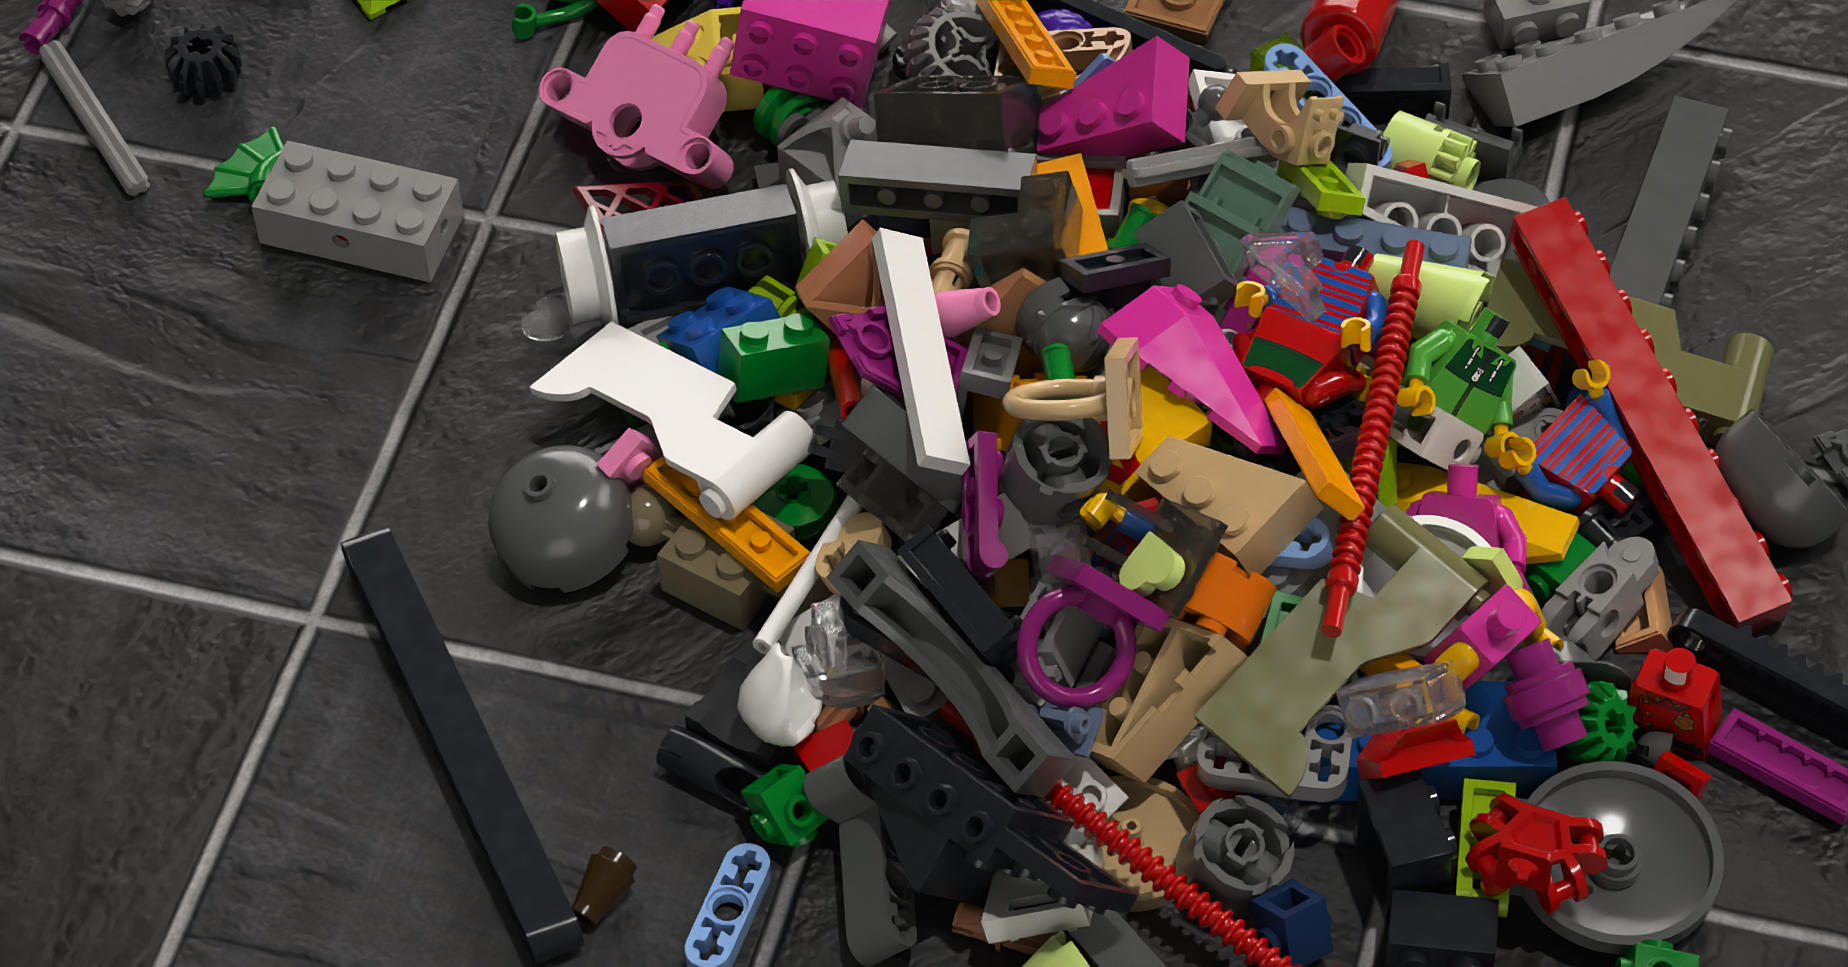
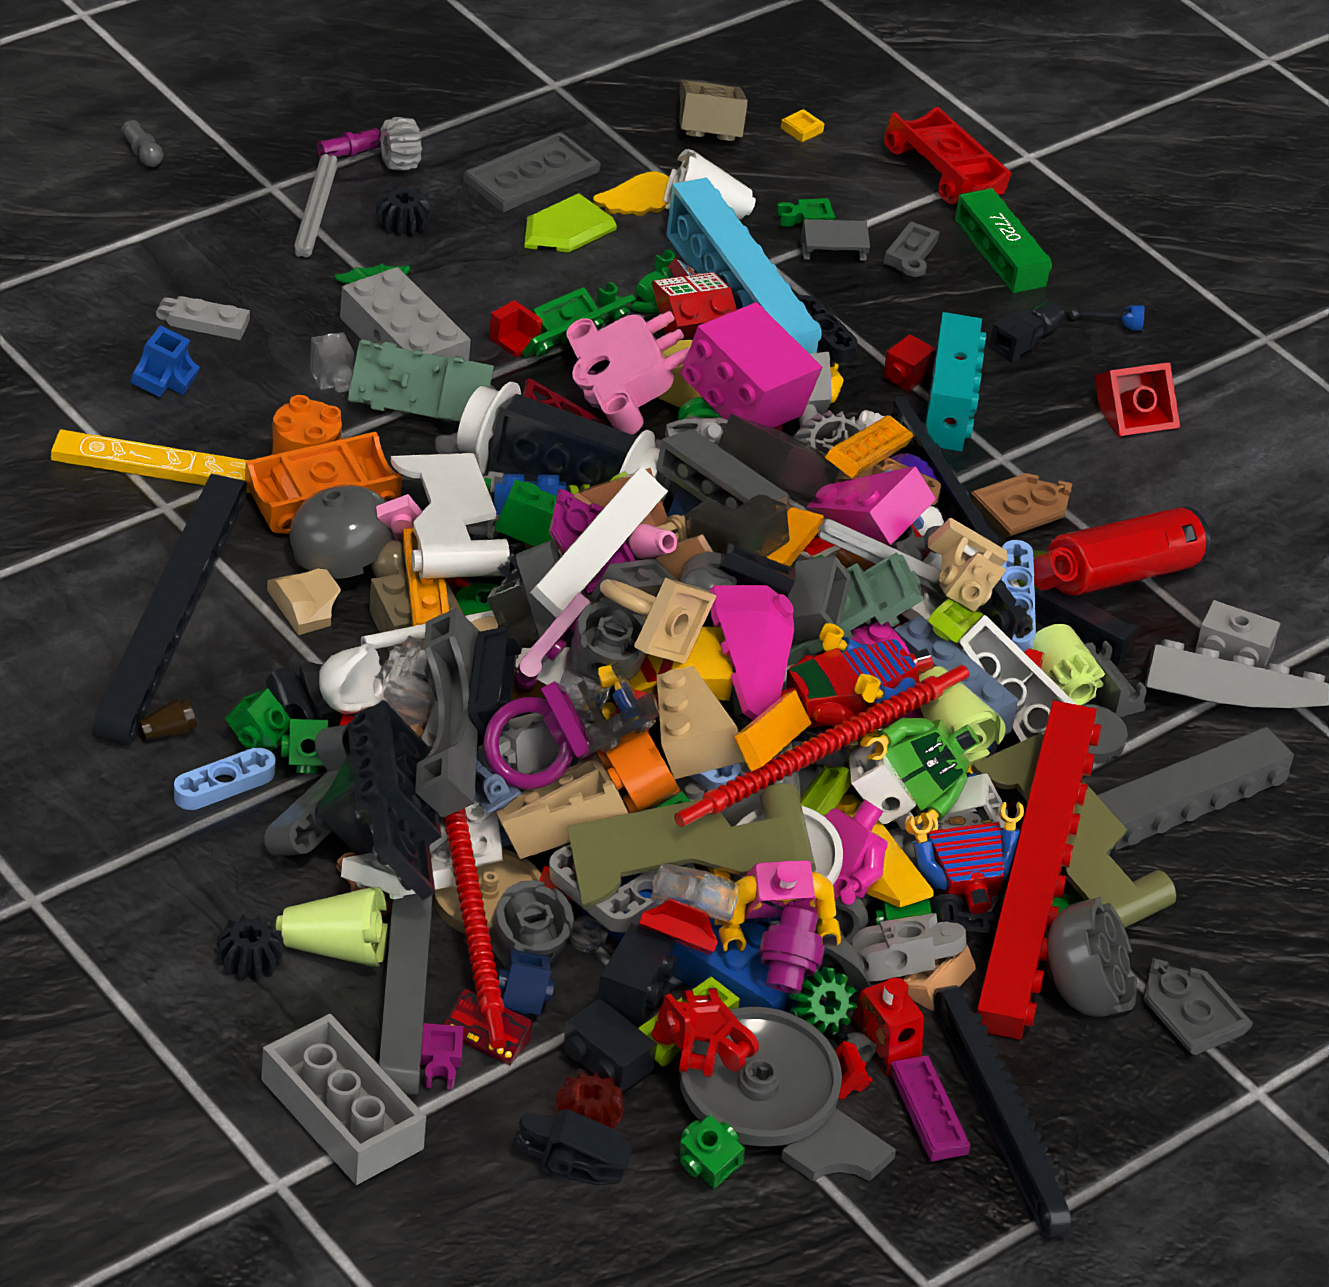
camera: 30 degrees right, 10 degrees down
(112, 345) = (204, 316): none -> light grey hinge
(143, 438) = (165, 364): none -> blue brick
(291, 548) = (143, 458): none -> yellow tile
(324, 308) = (332, 361): none -> clear brick
(392, 421) = (304, 424): none -> orange brick
(450, 478) = (289, 478): none -> orange piece
(455, 270) = (415, 381): none -> sand green piece
(474, 130) = (514, 327): none -> red panel
(514, 78) = (564, 311): none -> green bracket
(588, 624) = (305, 599): none -> tan slope
(706, 816) = (259, 721): none -> green brick
(1152, 567) = (601, 717): yellowish green tile -> none
(1286, 266) = (868, 629): clear slope -> none
(1495, 566) = (825, 861): yellowish green tile -> none
(1755, 877) = (839, 1147): none -> dark grey tile

